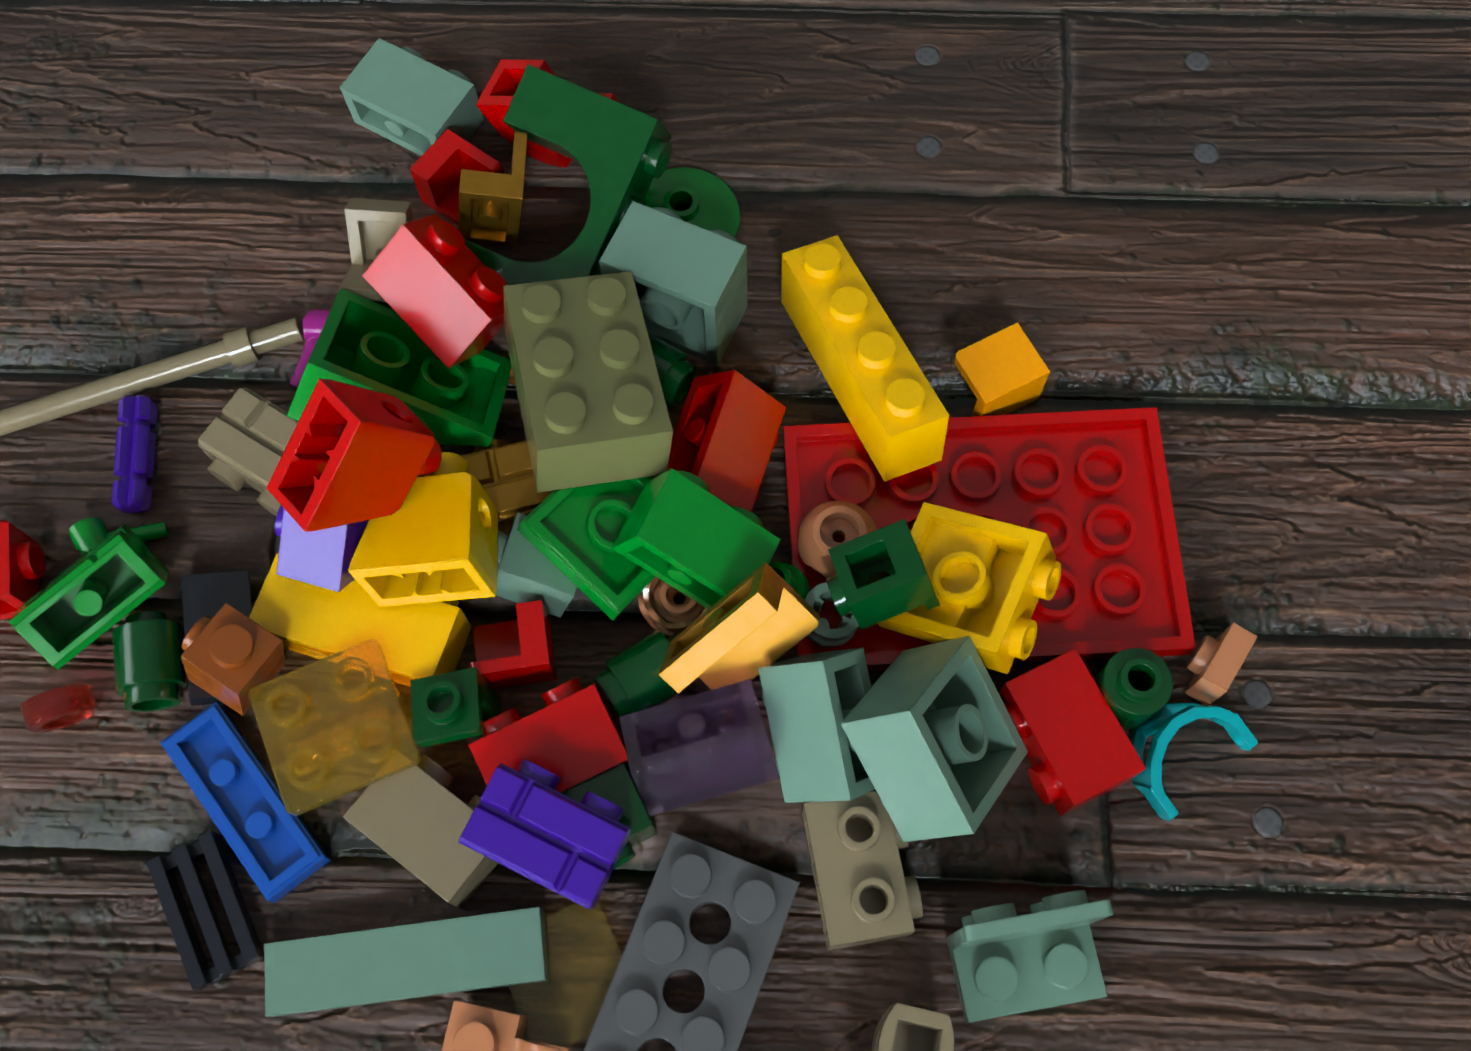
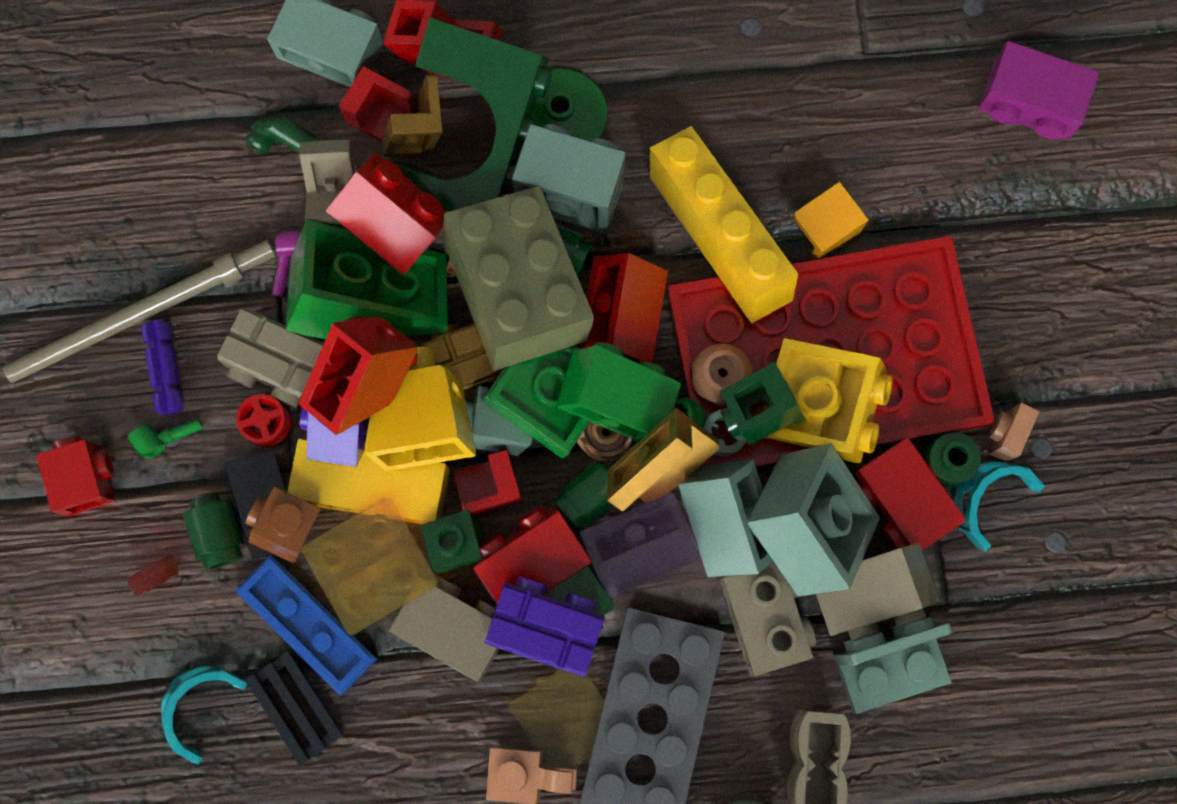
camera: 10 degrees left, 10 degrees up
(31, 910) = (177, 689): none -> teal helmet
(90, 597) = (160, 488): green brick -> none
(231, 523) = (258, 413): none -> red wheel
(325, 197) = (277, 131): none -> dark green arm
(405, 962) = (449, 725): sand green tile -> none
(1021, 846) = (883, 588): none -> dark tan brick
(1282, 248) = (1038, 91): none -> magenta brick

